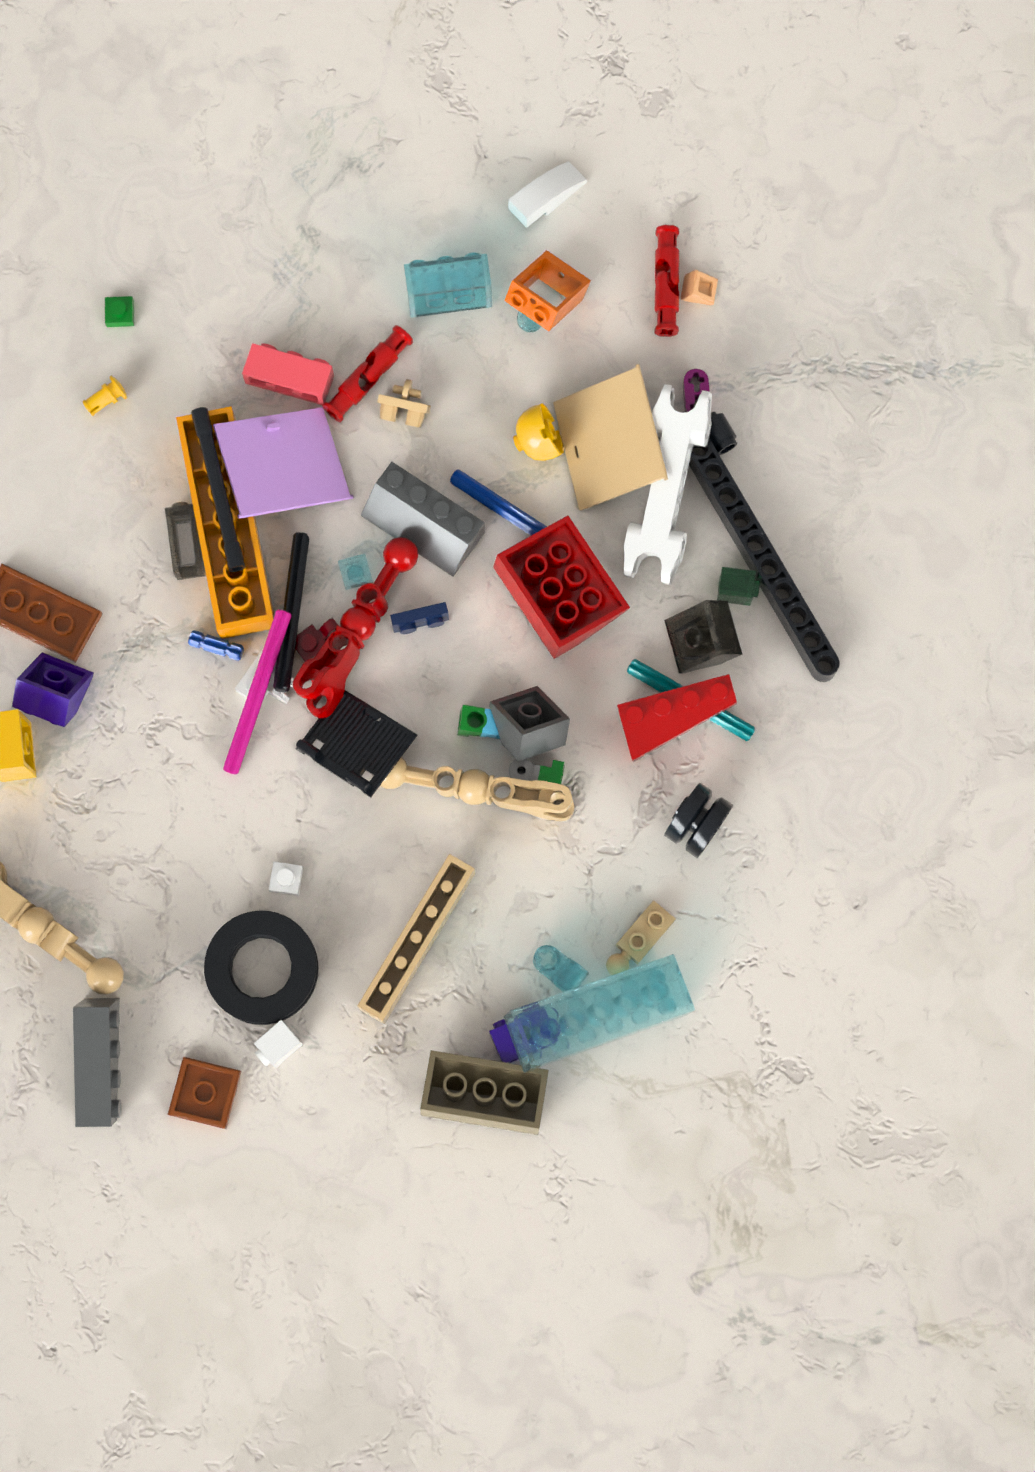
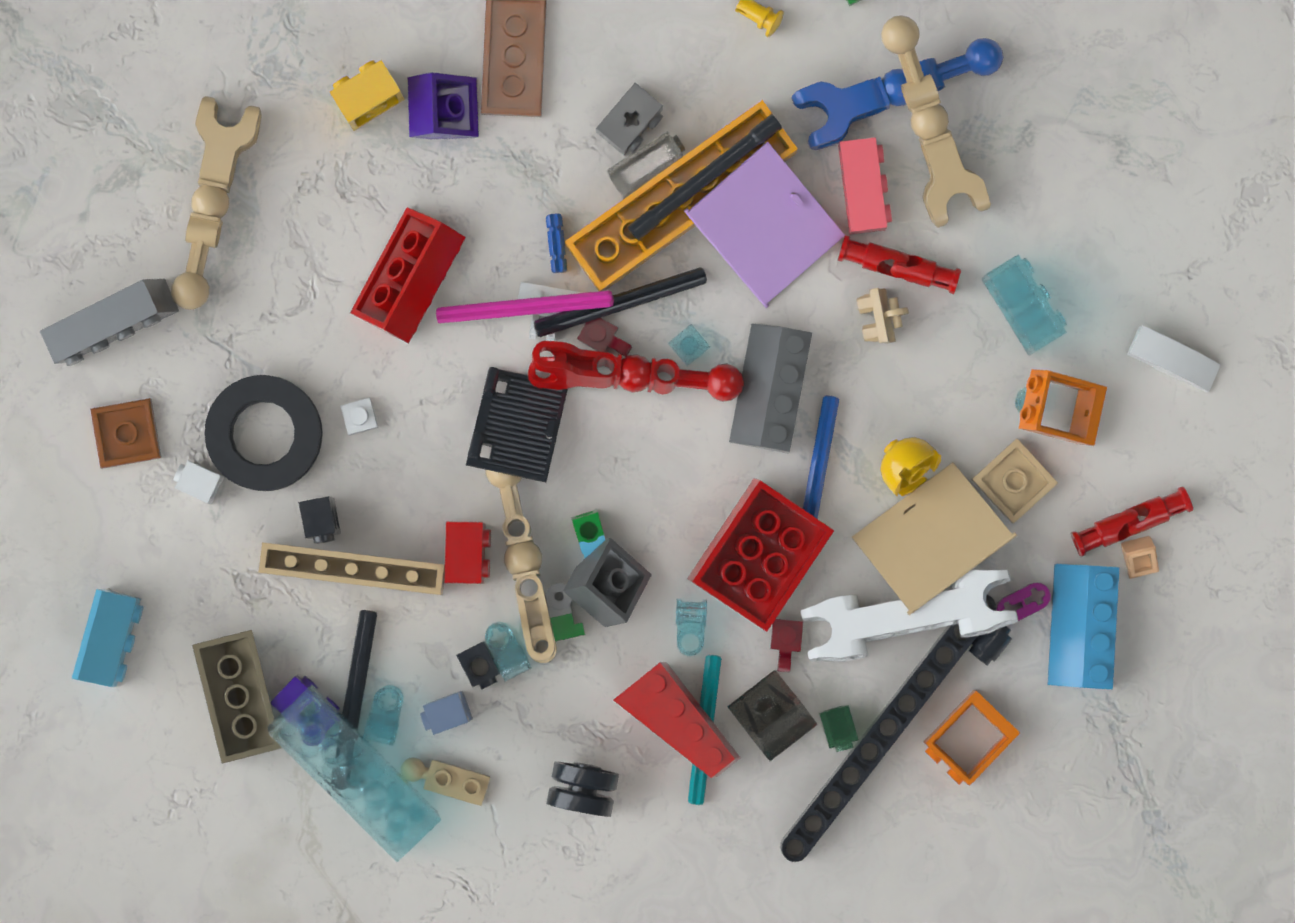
camera: 65 degrees right, 10 degrees up
(143, 553) = (614, 127): none -> dark grey brick
(182, 781) = (408, 274): none -> red slope
(220, 313) = (877, 94): none -> blue piece
(259, 293) = (930, 123): none -> tan piece
(360, 947) = (320, 519): none -> black brick
(380, 1186) = (107, 638): none -> medium azure slope
(410, 620) = (660, 420): dark blue plate -> none
(447, 831) = (466, 552): none -> red brick
(502, 971) = (359, 666): none -> black axle
(541, 876) = (468, 656): none -> black brick
(554, 838) = (508, 656): none -> clear light blue piece
(581, 906) = (446, 713): none -> sand blue arch
(590, 357) = (1014, 481): none -> tan plate
(594, 671) = (690, 623): none -> clear light blue piece
(643, 599) = (786, 638): none -> dark red plate
(738, 353) = (1083, 626): none -> dark azure slope
(785, 455) = (993, 716): none -> orange window

